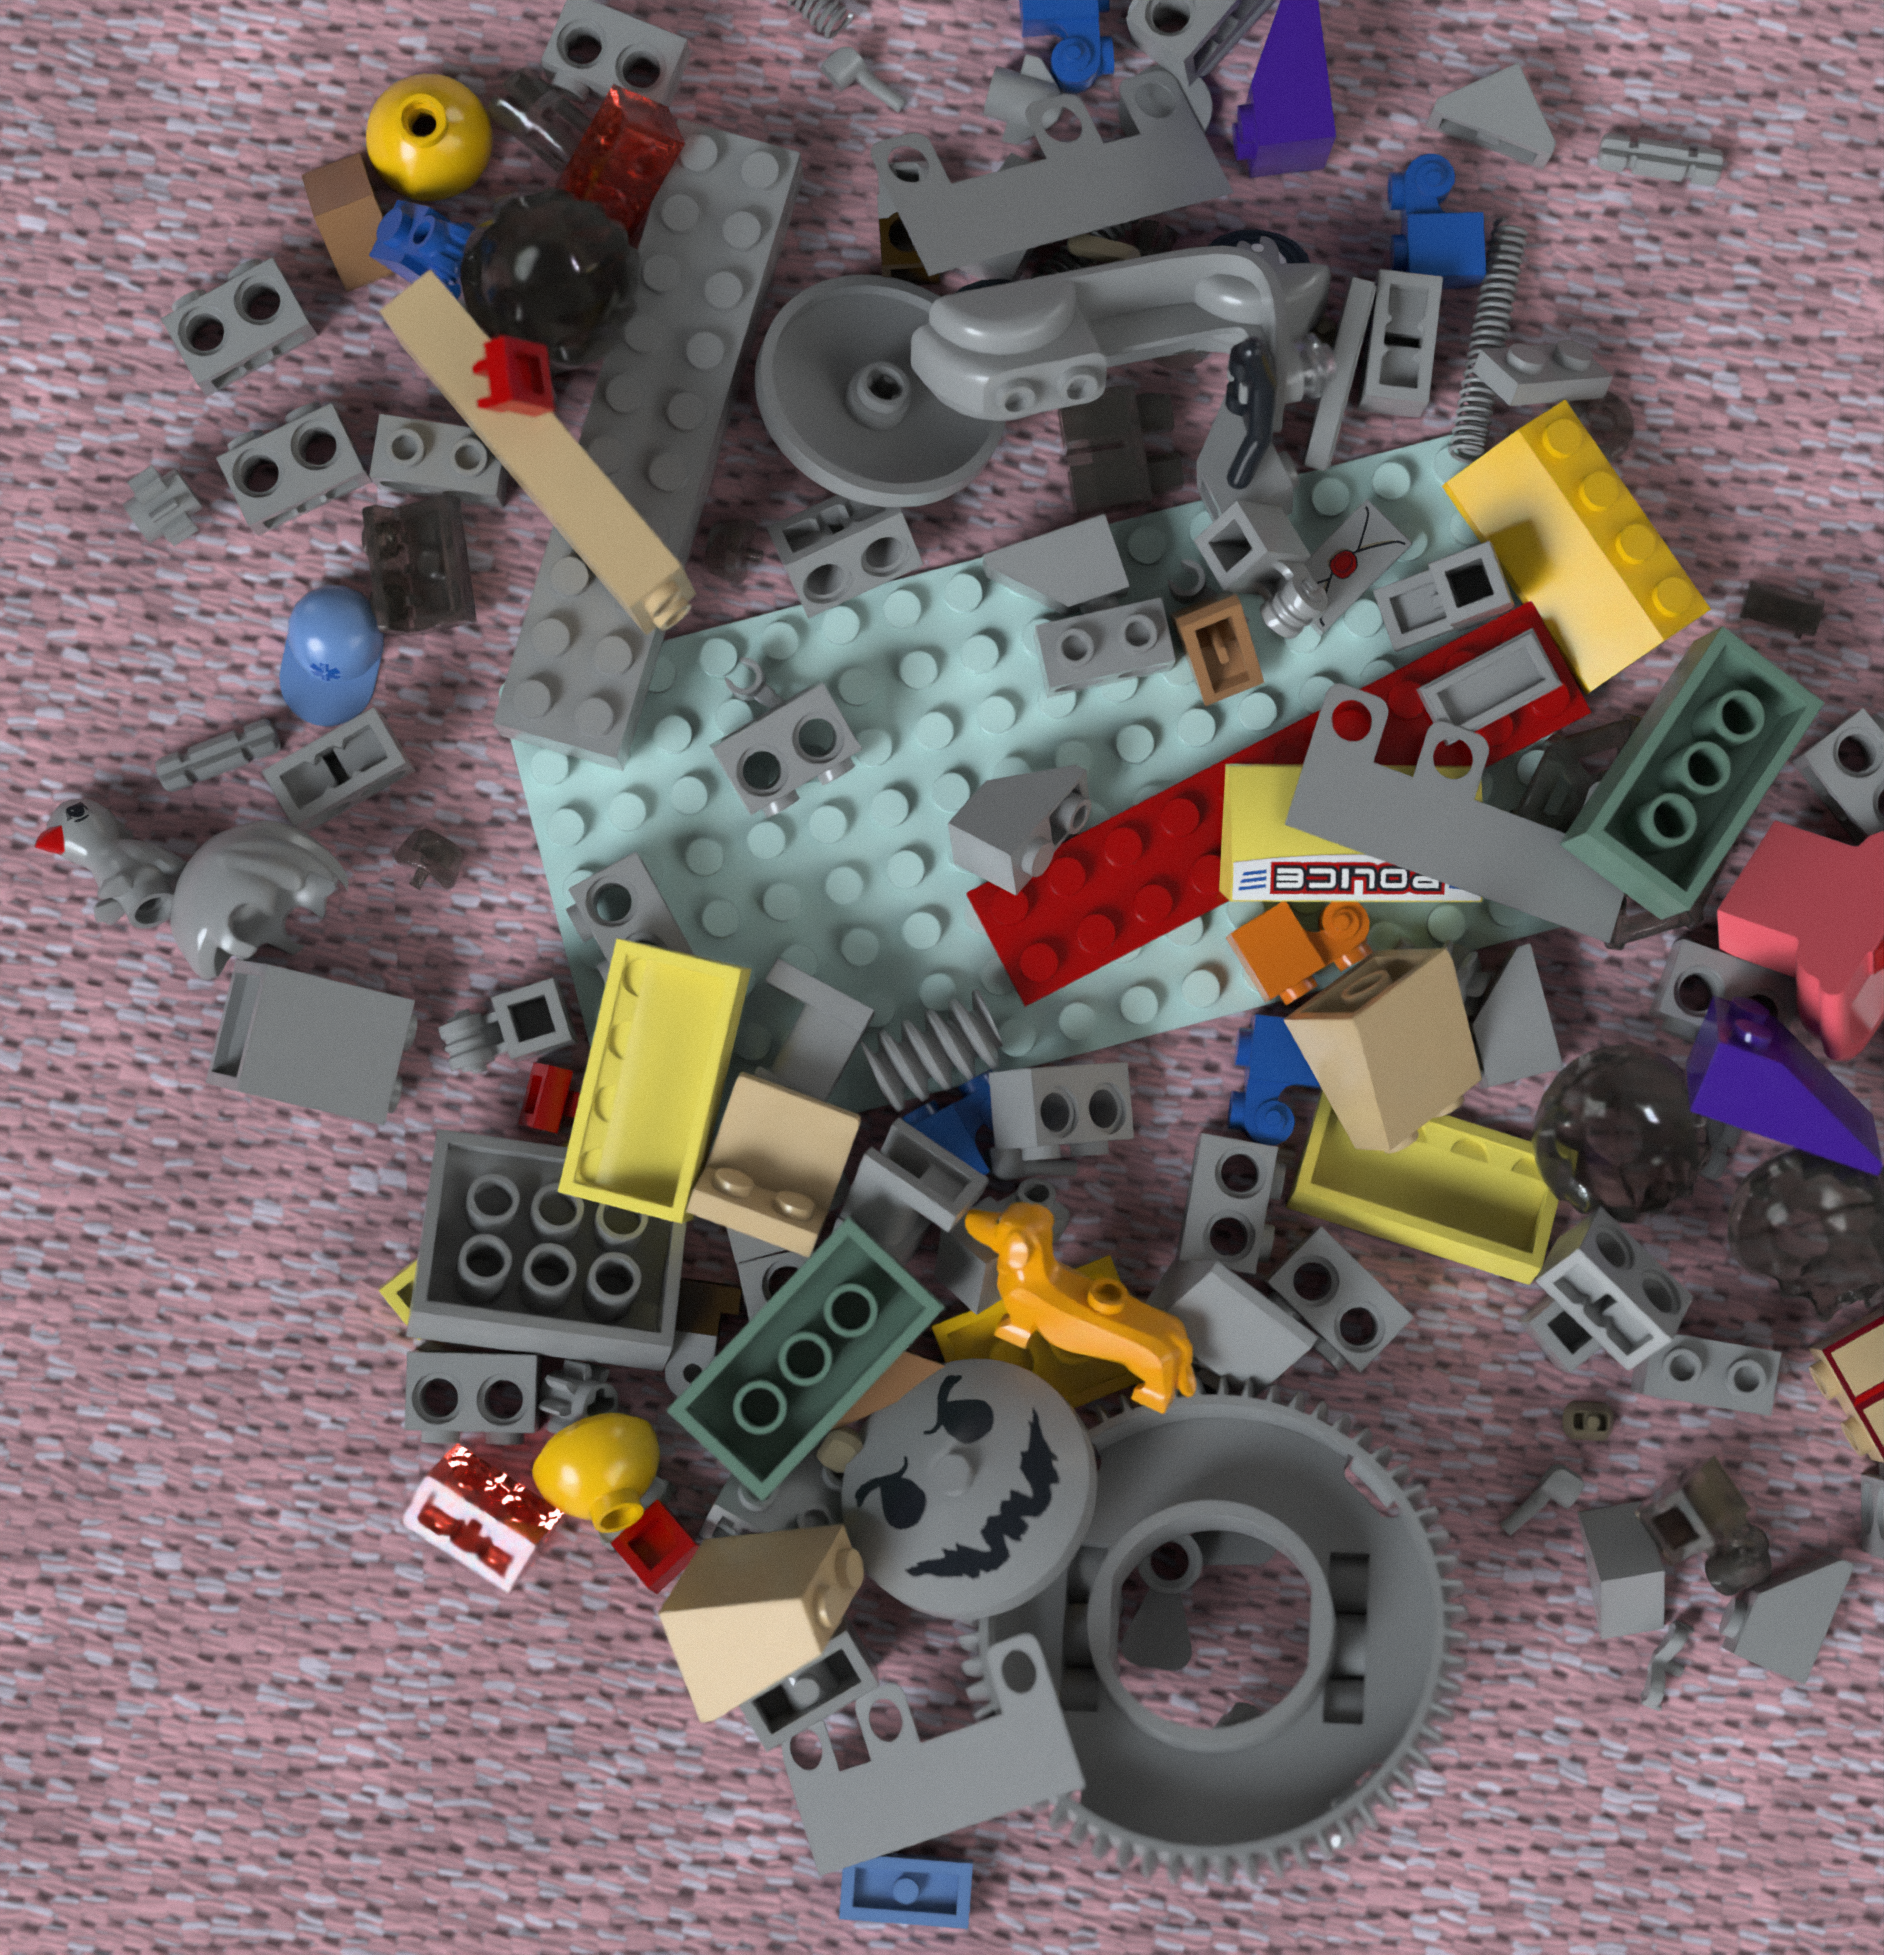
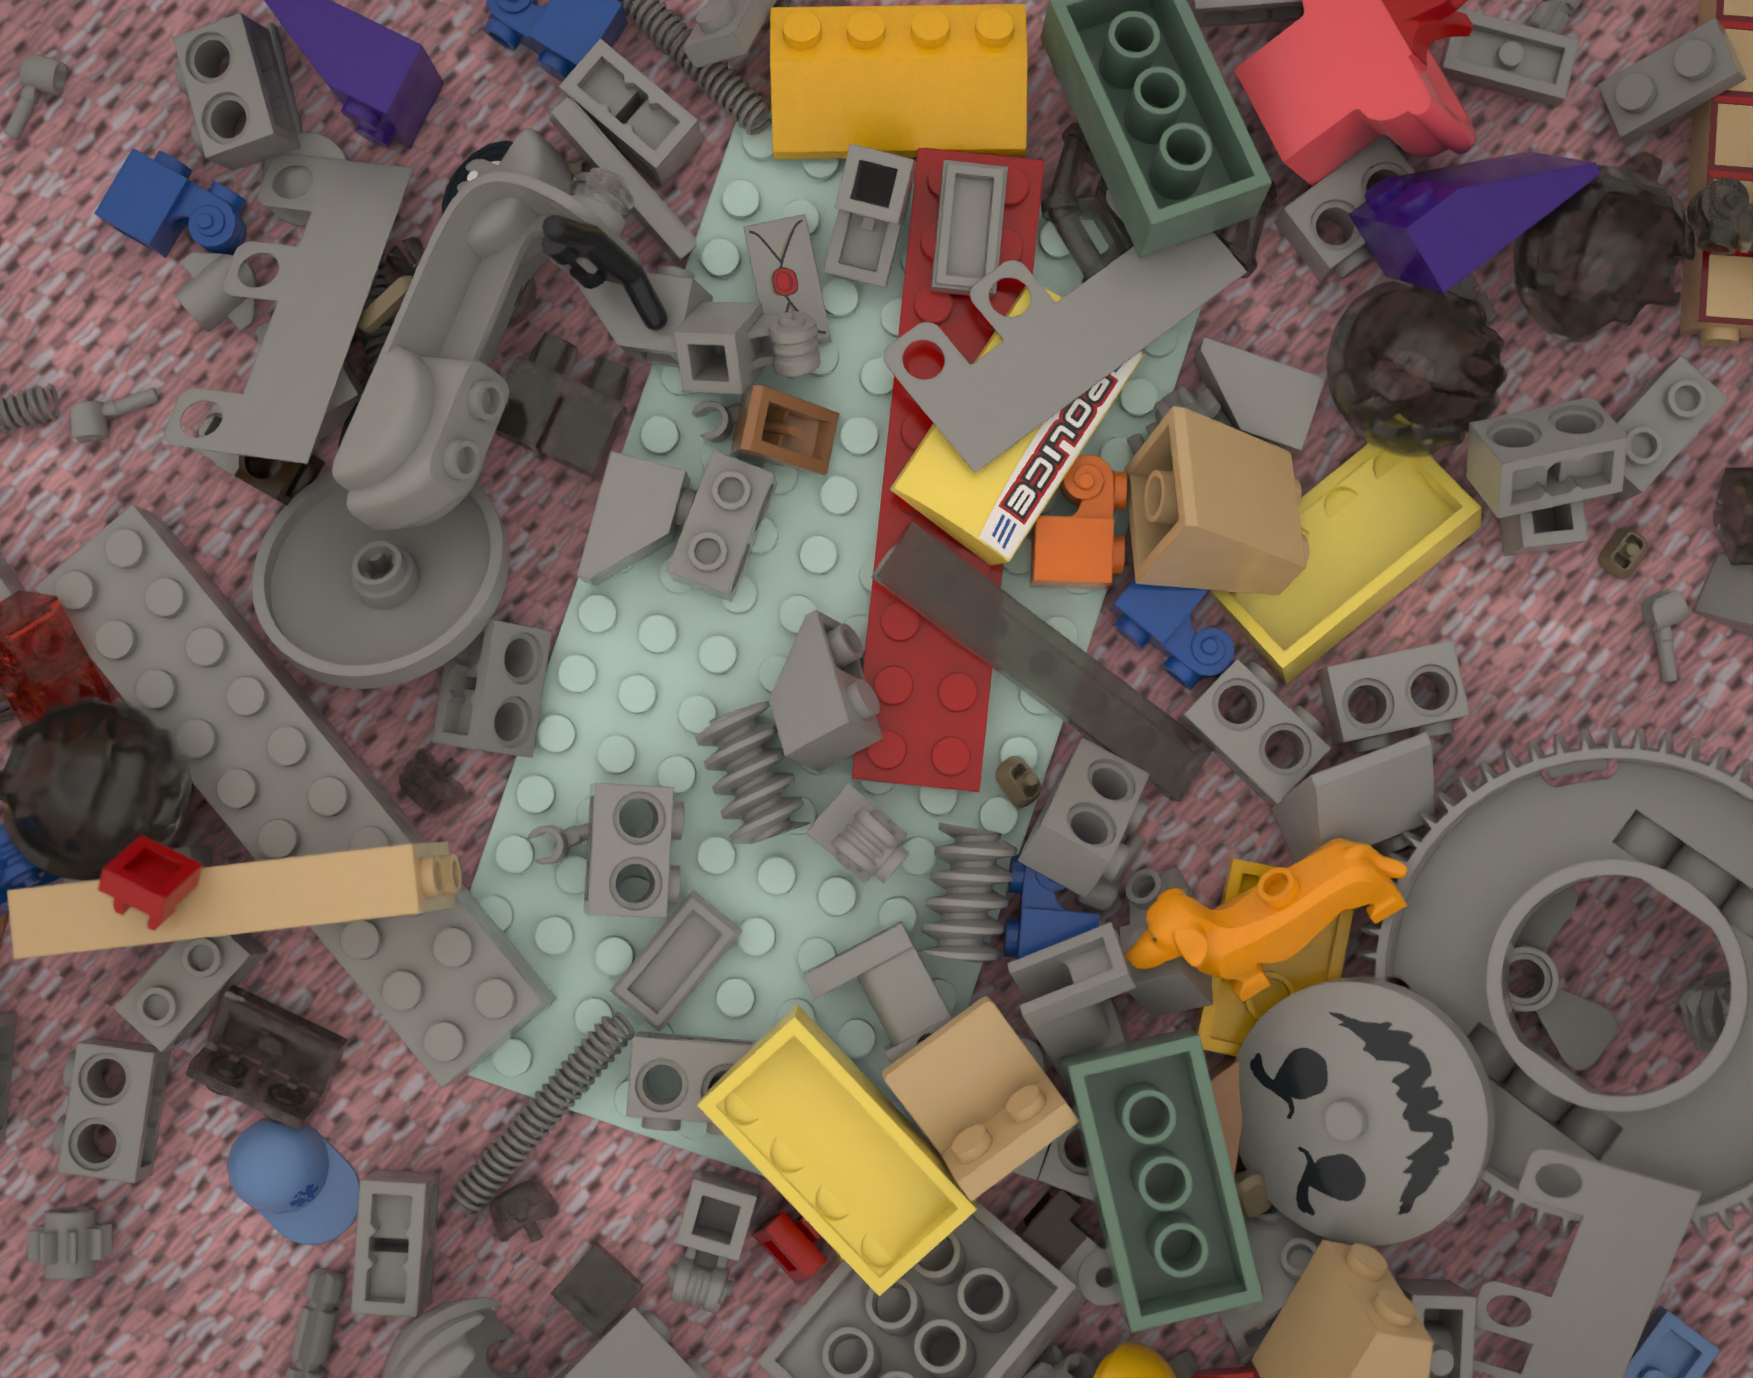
camera: 50 degrees left, 0 degrees up
(406, 962) = (597, 1289): none -> clear smoke plate
(513, 815) = (548, 1103): none -> light grey piece
(719, 848) = (676, 960): none -> light grey tile
(912, 807) = (750, 775): none -> light grey piece
(922, 930) = (860, 836): none -> light grey brick
(1055, 1034) = (1018, 781): none -> dark tan rock
(1167, 986) = (1041, 660): none -> clear smoke tile

